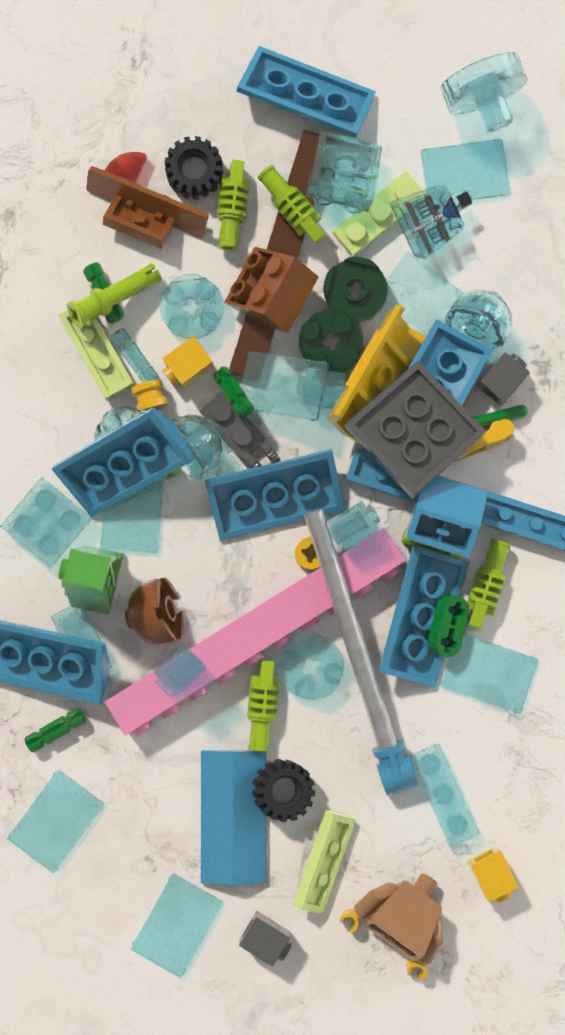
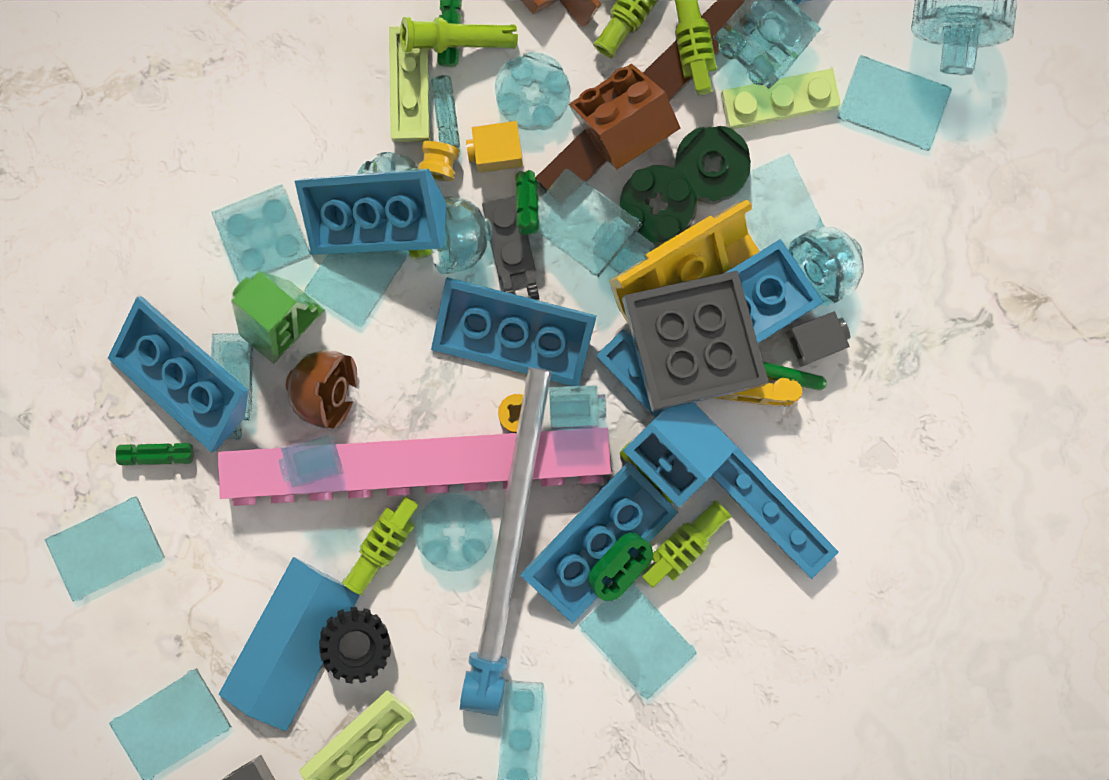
camera: 30 degrees right, 0 degrees up
(430, 218) = (832, 129): clear light blue torso -> none

